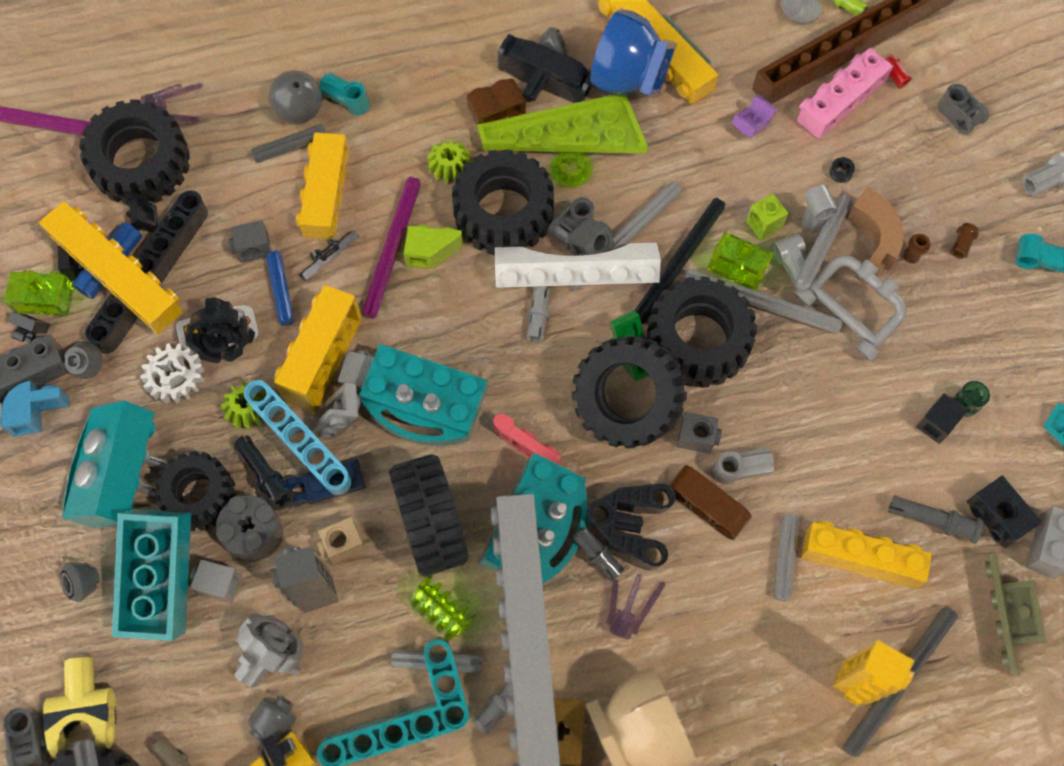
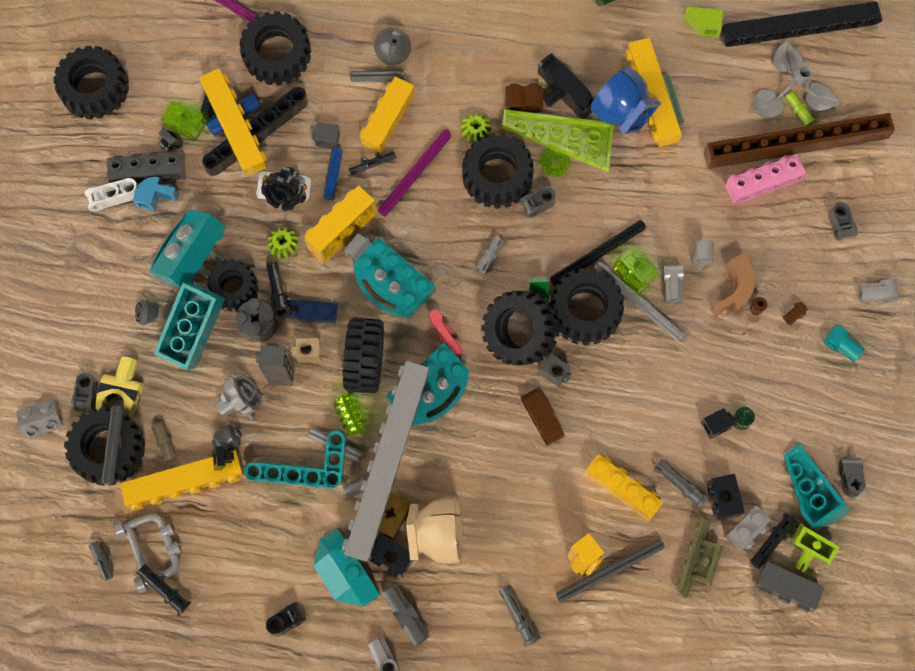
camera: 25 degrees right, 5 degrees up
(83, 360) = (195, 175): dark grey cone -> none
(143, 215) = (265, 92): black tile -> none
(160, 96) = (303, 15): plant -> none
(172, 373) = (246, 213): white gear -> none
(215, 581) = (224, 344): light grey brick -> none
(288, 427) = (301, 268): medium azure beam -> none
(339, 412) = (337, 270): light grey bracket -> none
(346, 93) = (427, 53): teal piece -> none
(430, 246) = (439, 183): lime slope -> none
(553, 39) = (581, 69): dark grey cone -> none
(591, 238) = (543, 219): dark grey brick -> none
(598, 553) = (459, 420): dark grey axle -> none
(620, 266) = (560, 244): white arch -> none
(623, 622) = (455, 467): plant -> none
(624, 545) = (494, 395): black connector -> none
(643, 217) = (569, 222): light grey axle -> none
(745, 465) = (577, 402): light grey piece -> none
(755, 117) = (693, 174): medium lavender bracket -> none
(767, 217) = (668, 246): lime brick -> none
(786, 557) = (575, 469): light grey axle -> none
(822, 244) = (696, 278): light grey axle -> none
(845, 163) = (742, 229): black bush -> none
(886, 289) = (720, 326): light grey bar -> none
(898, 73) = (810, 177): red pin -> none

